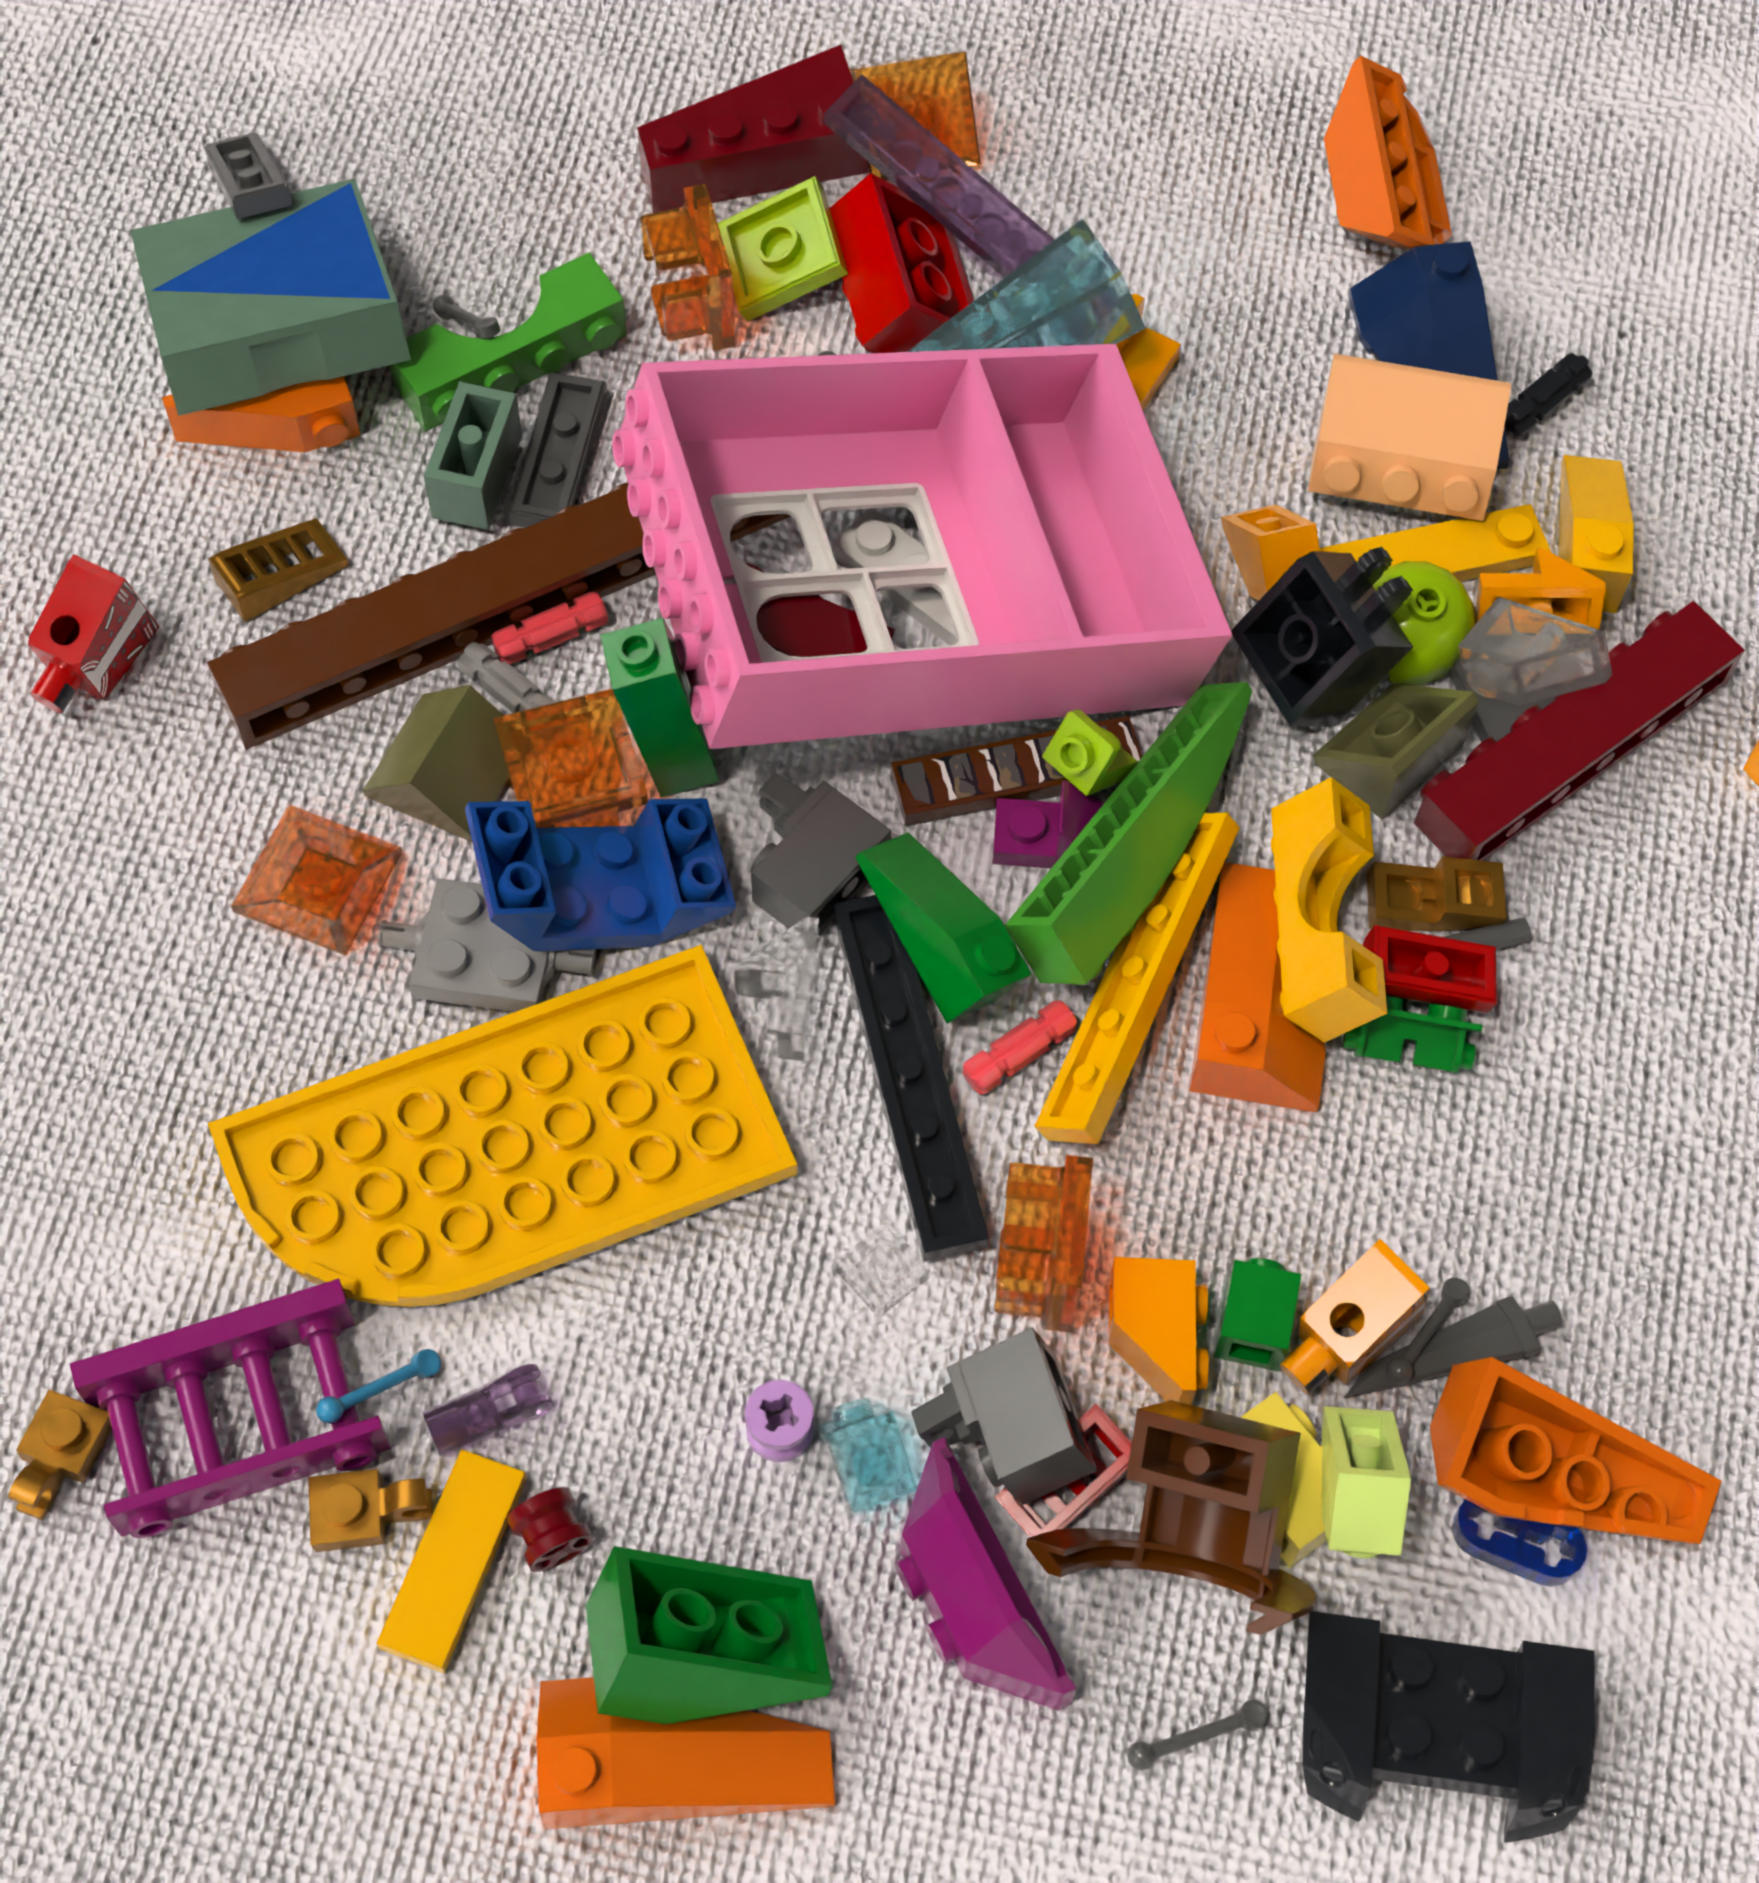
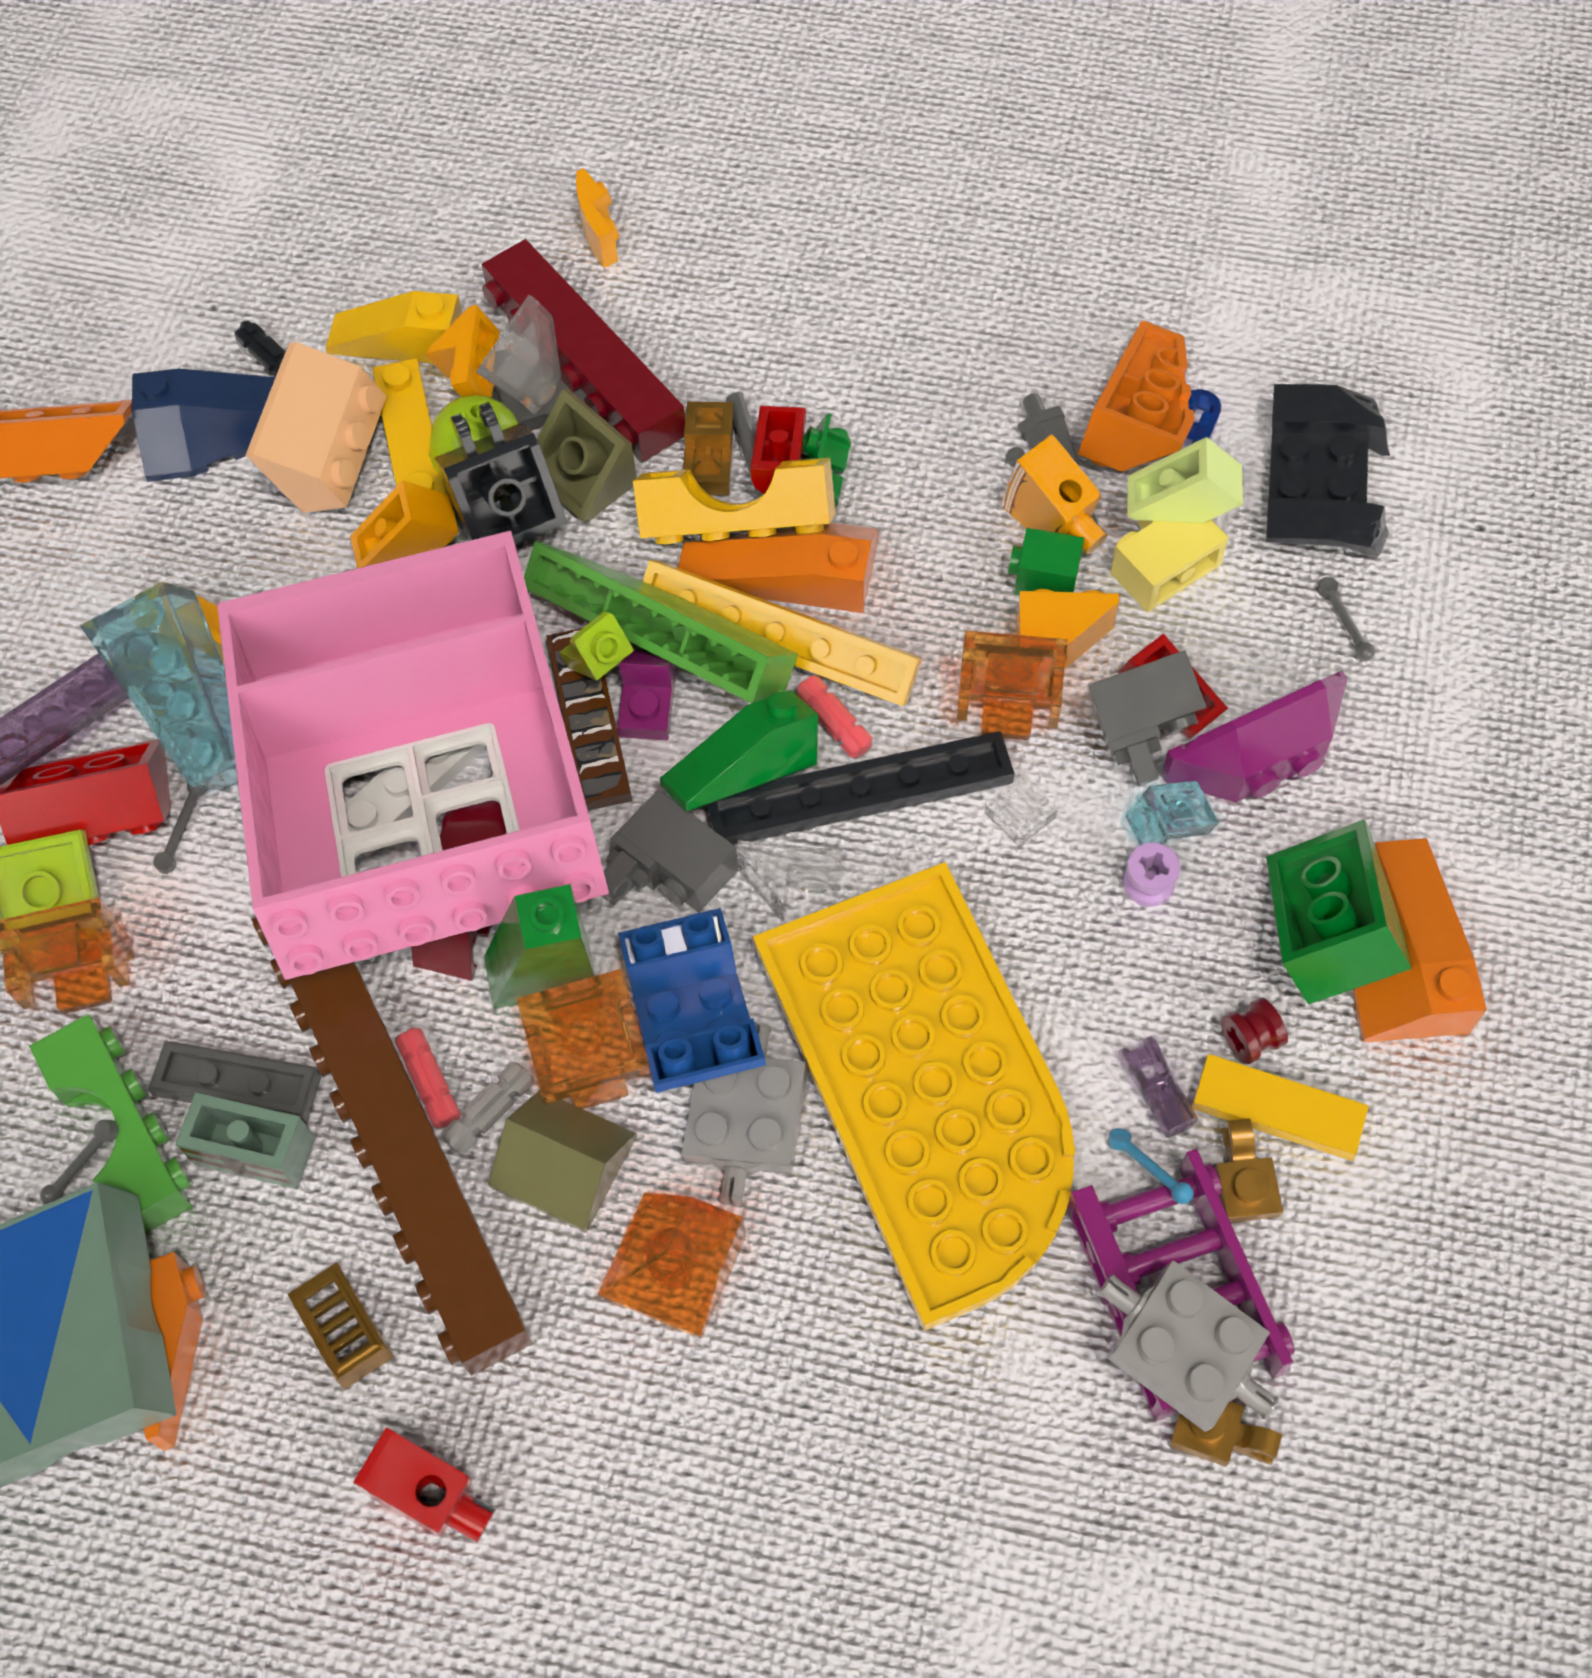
camera: 85 degrees left, 0 degrees up
(135, 1393) = (1188, 1346): none -> light grey plate
(1208, 1510) = (1203, 578): reddish brown piece -> none

